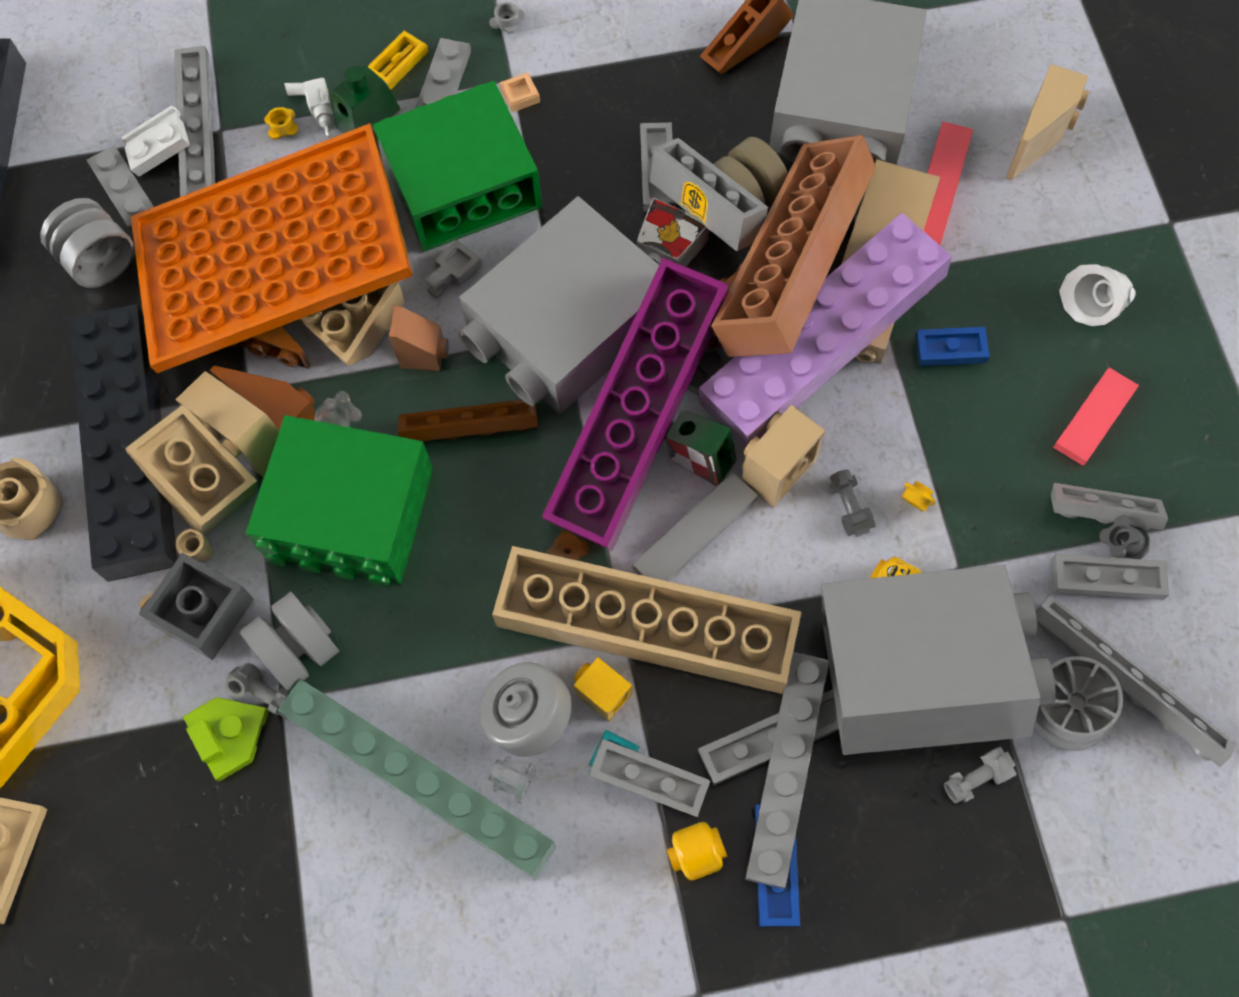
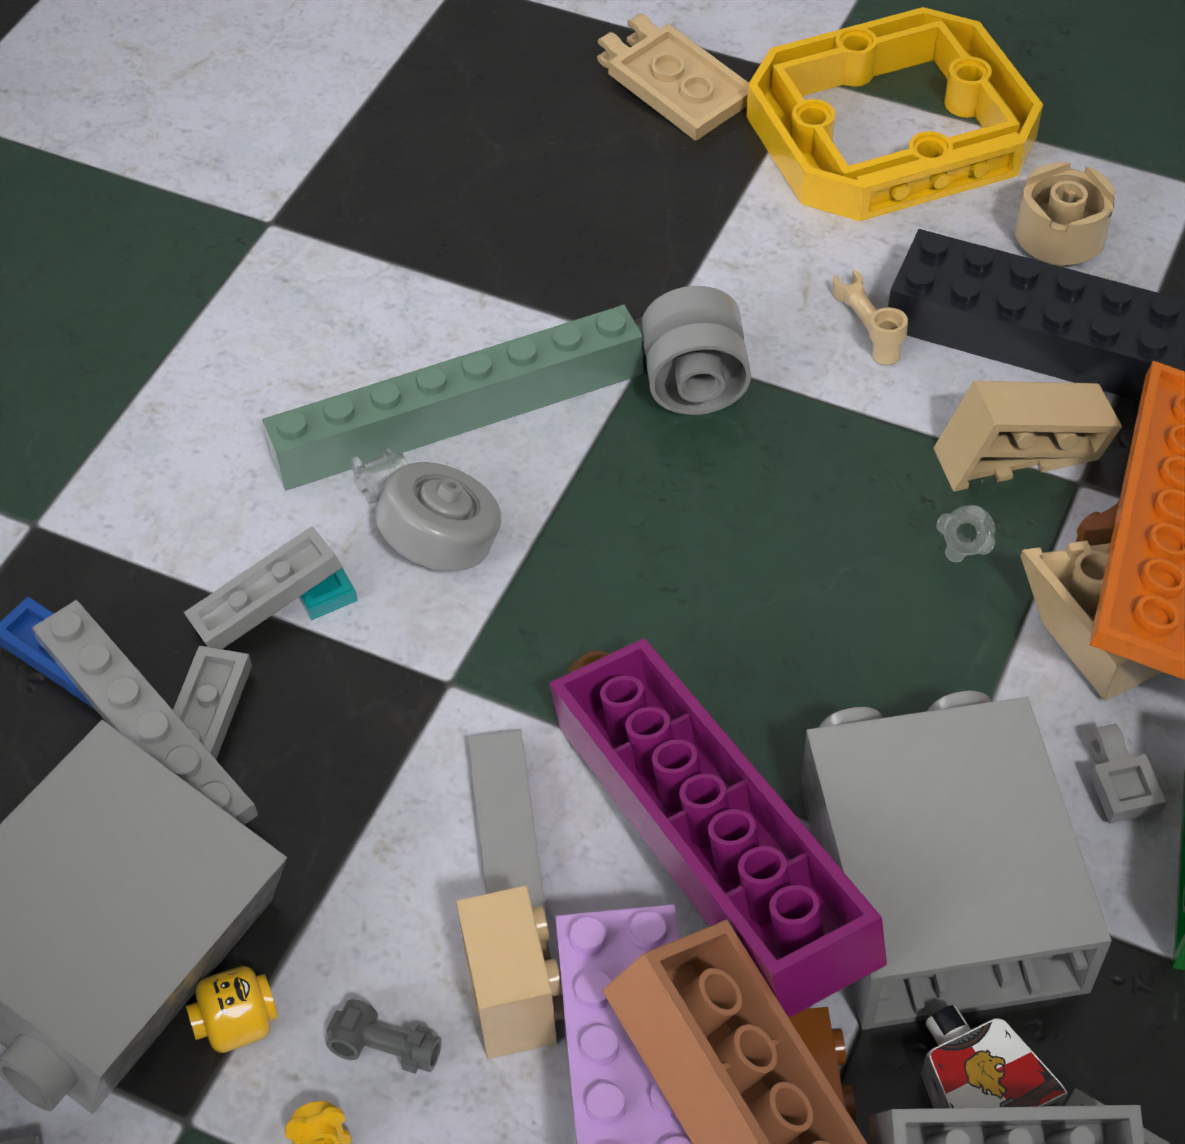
camera: 125 degrees right, 15 degrees down
(192, 470) = (976, 338): tan slope -> none
(197, 606) = (807, 302): dark grey brick -> none
(225, 734) = (647, 274): lime plate -> none
(268, 394) = (1036, 481): dark orange slope -> none
(341, 500) = (833, 472): green brick -> none
(417, 341) = (1018, 651): nougat slope -> none
(468, 420) = (862, 653): reddish brown plate -> none
(602, 688) = (400, 607): yellow brick -> none
(647, 619) = (428, 691): tan brick -> none
(697, 851) = (150, 587): yellow head -> none
(701, 446) = (607, 877): dark green torso -> none

